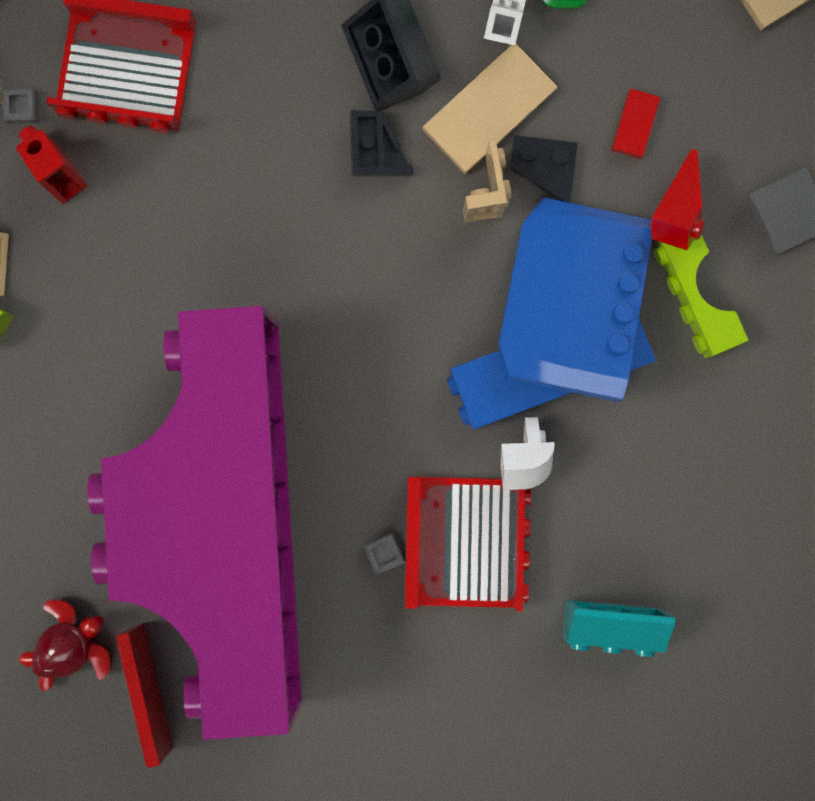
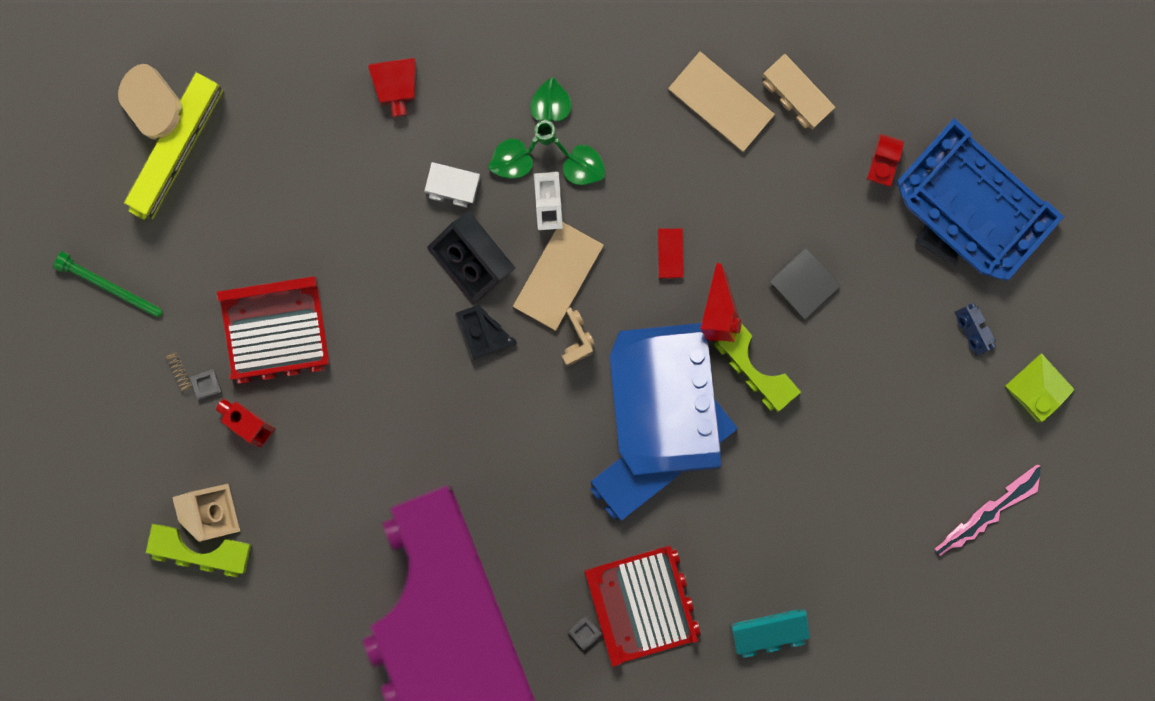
camera: 25 degrees left, 0 degrees up
(529, 462) = (669, 532): white brick -> none
(545, 163) = (613, 305): black wing -> none

